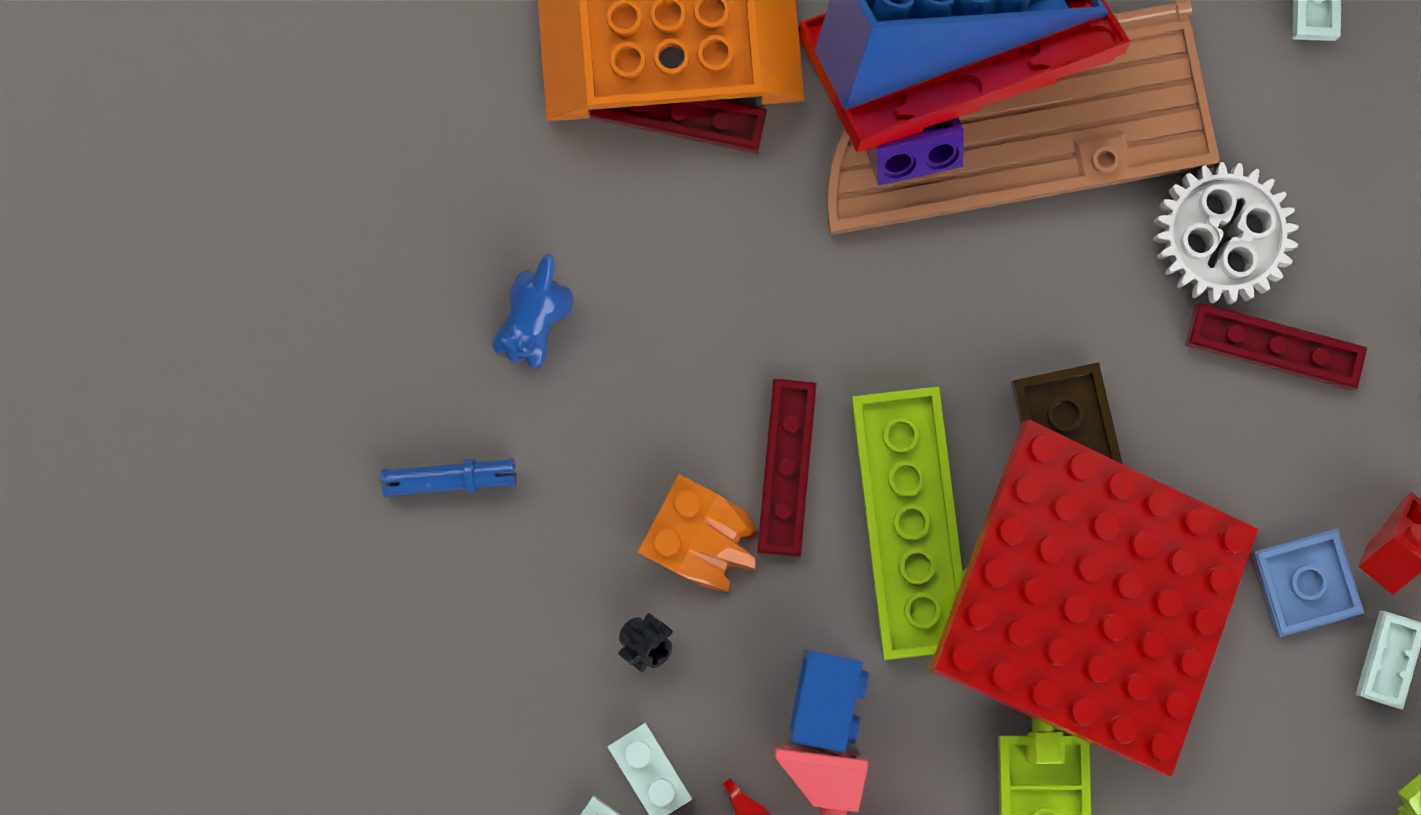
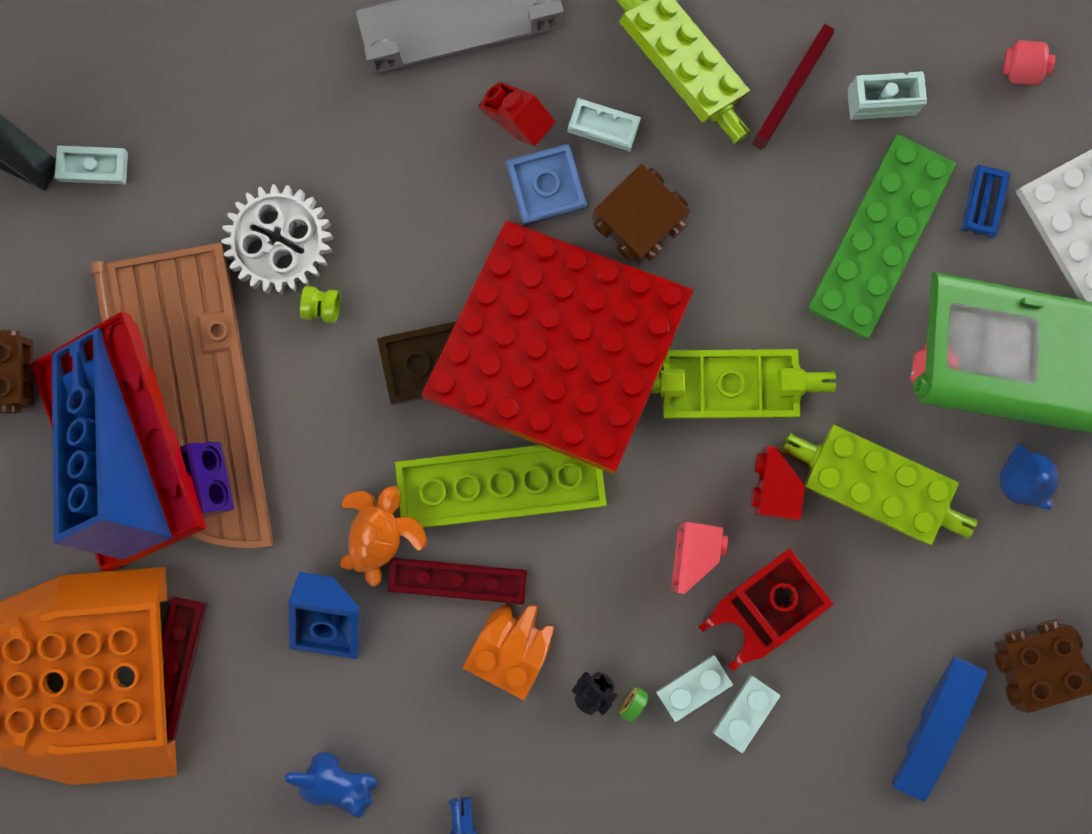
camera: 90 degrees left, 0 degrees up
(630, 692) = (633, 704): none -> bright green tile
(741, 298) = (323, 617): none -> blue slope
(827, 701) = (639, 552): blue brick -> none
(848, 365) = (376, 532): none -> orange animal
(1141, 289) = (320, 304): none -> lime wheel
(1269, 708) = (641, 215): none -> reddish brown brick
(1276, 346) = (365, 203): dark red tile -> none

